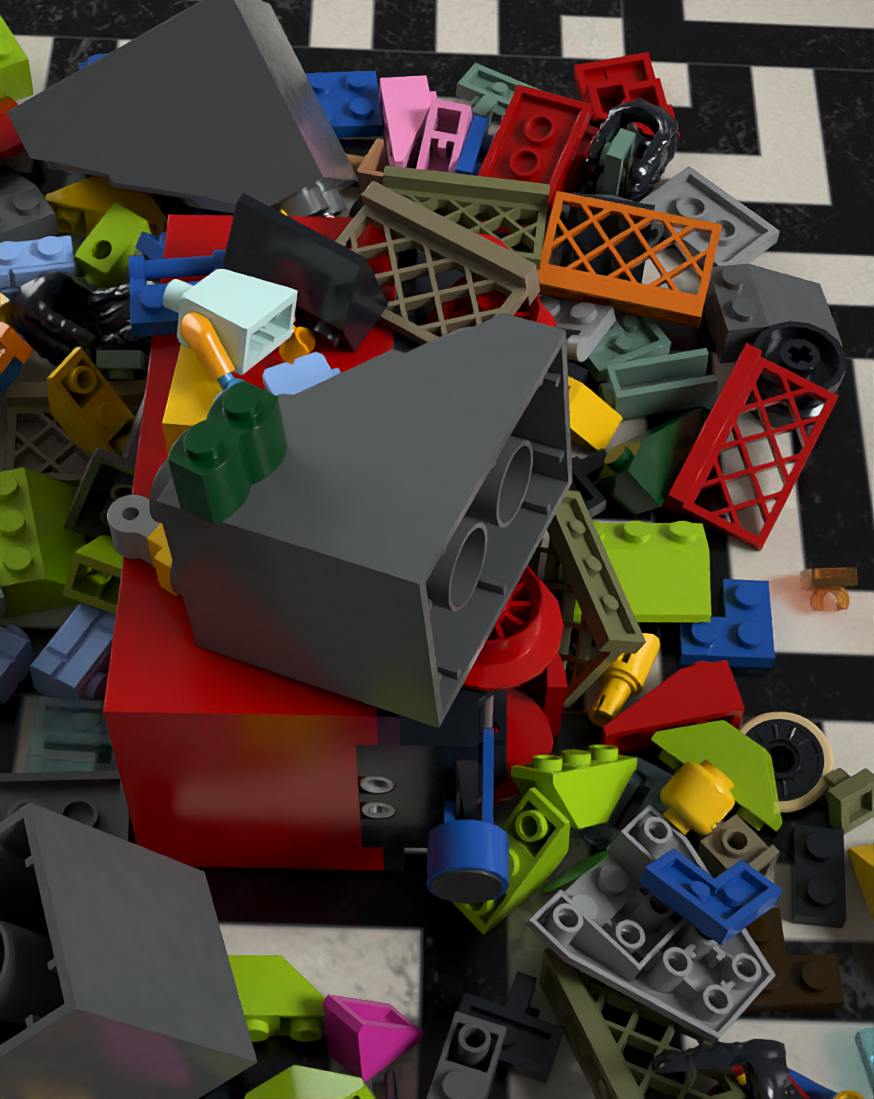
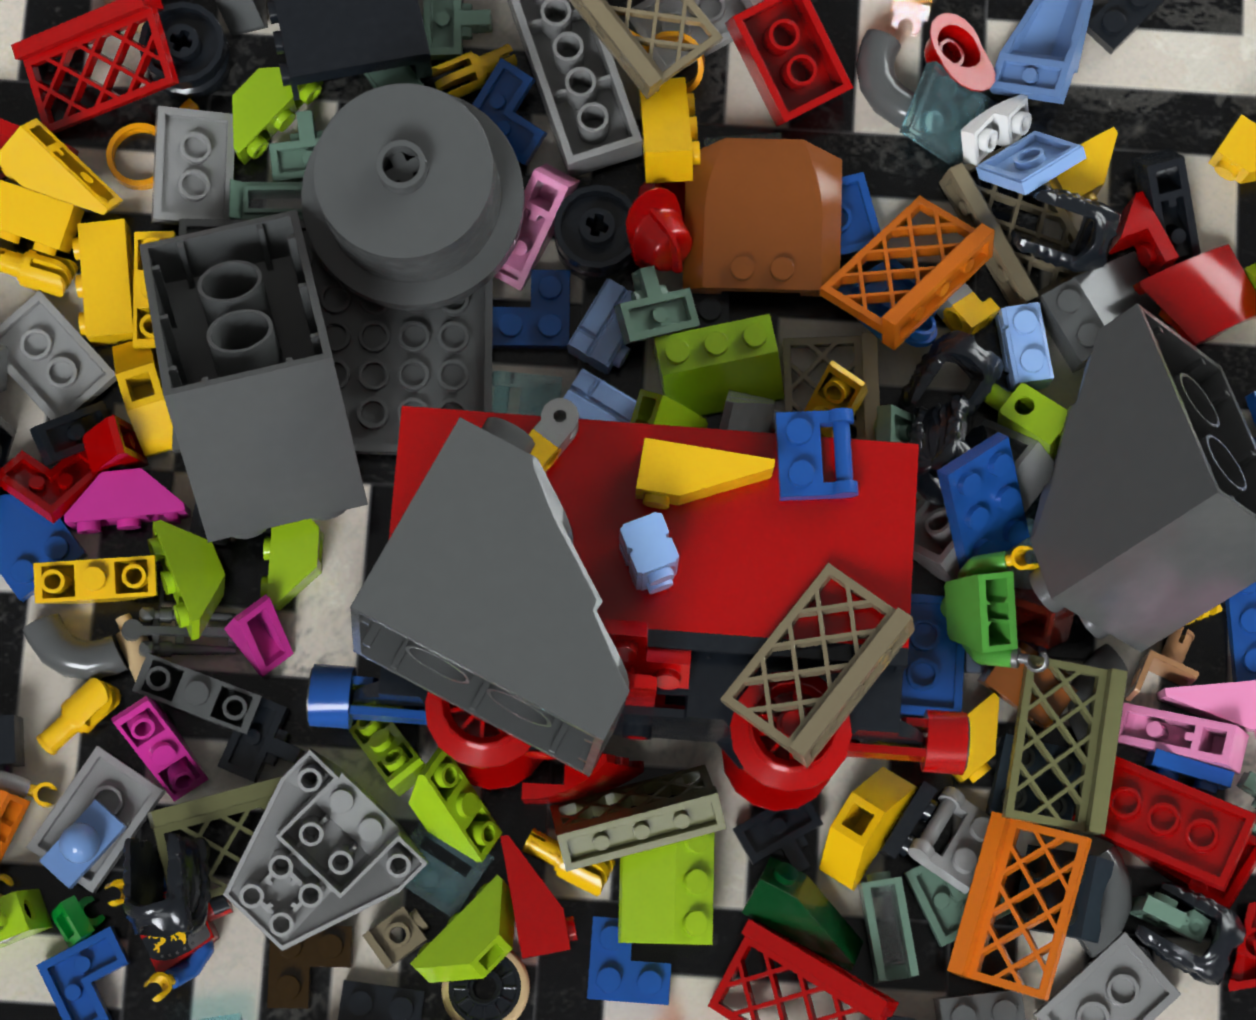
camera: 95 degrees right, 25 degrees up
(228, 452) = (467, 460): dark green brick -> none
(236, 323) = (730, 491): light aqua torso -> none
(334, 284) = (805, 555): black slope -> none
(574, 871) = (385, 802): bright green sticker -> none
(697, 798) = (430, 903): yellow head -> none
(714, 905) = (324, 900): blue plate -> none

